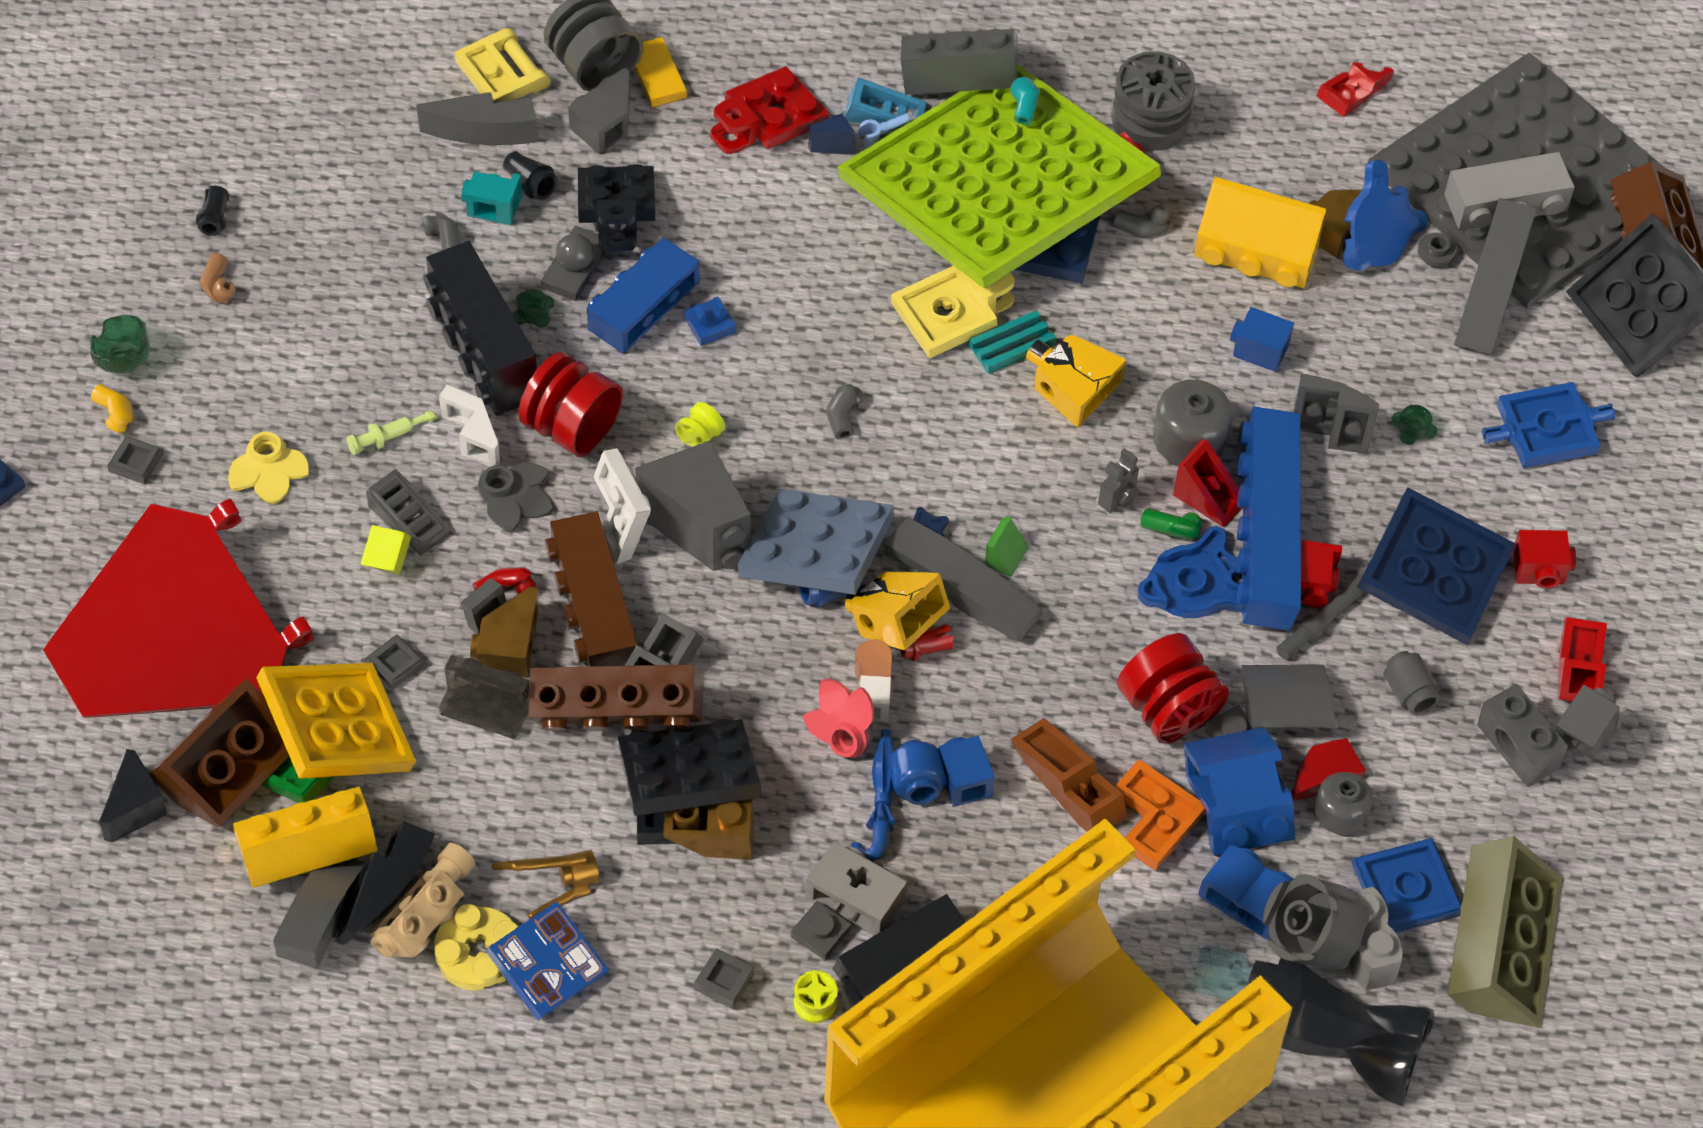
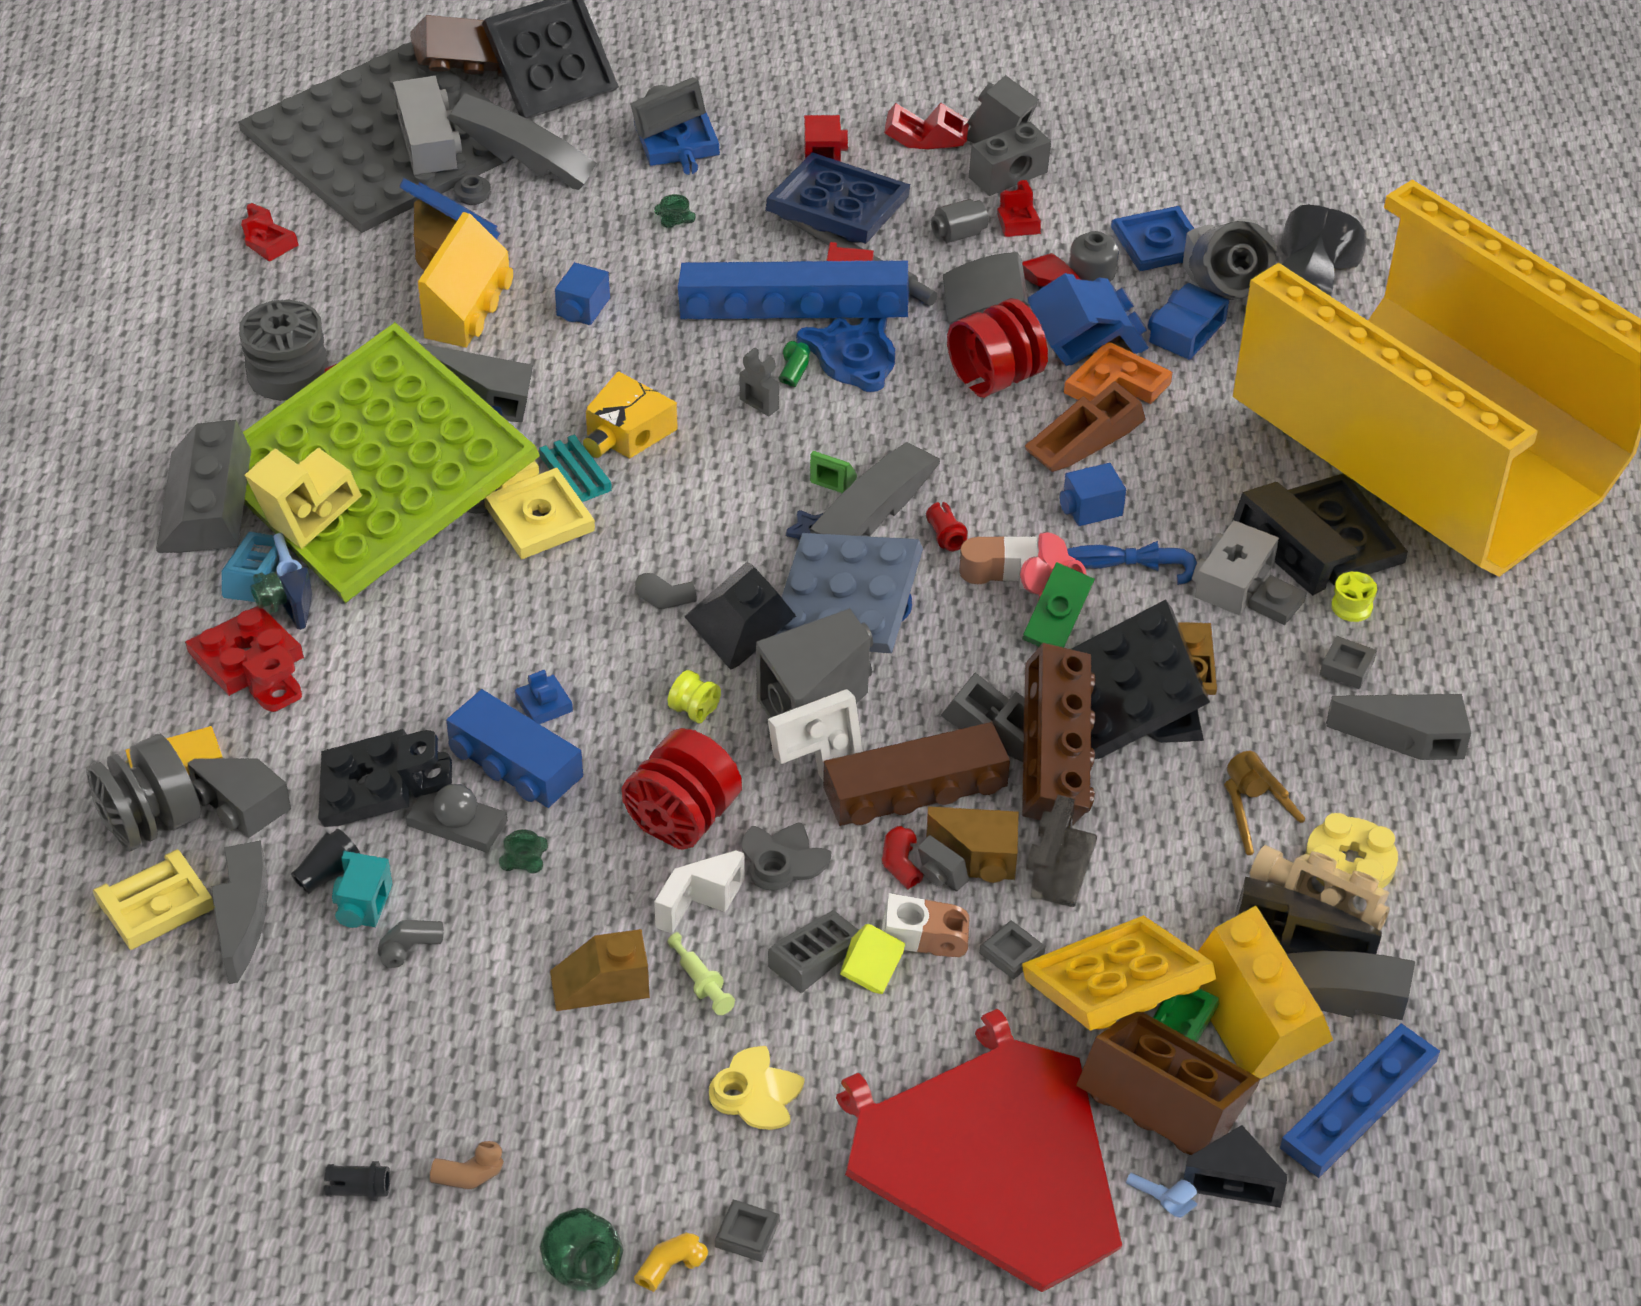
camera: 90 degrees left, 10 degrees down
(116, 752) = (1175, 1200): none -> light blue hand
(196, 909) = (1359, 1100): none -> blue plate
(390, 365) = (602, 972): none -> pearl gold slope
(415, 588) = (927, 925): none -> leg
(479, 326) = (573, 872): black brick -> none
(547, 961) = (1363, 790): blue tile -> none
(627, 1022) = (1410, 724): none -> dark grey slope
(797, 460) = (740, 615): none -> black slope
(797, 721) = (1058, 607): none -> green plate
(831, 106) = (268, 591): none -> clear green plate
(898, 606) = (934, 520): yellow torso -> none
(917, 772) = (1101, 523): blue head -> none
(925, 114) = (302, 496): none -> light yellow brick
(1027, 96) = (279, 425): teal arm -> none
(1112, 261) = (494, 379): none -> dark grey slope
(1189, 414) = (689, 335): dark grey head -> none
(1207, 484) = (748, 332): red slope -> none
(1337, 412) = (682, 238): dark grey slope -> none
(1442, 747) = (1017, 212): none -> red slope
(1505, 933) = (1200, 180): olive slope -> none
(1559, 398) = (667, 107): none -> dark grey tile

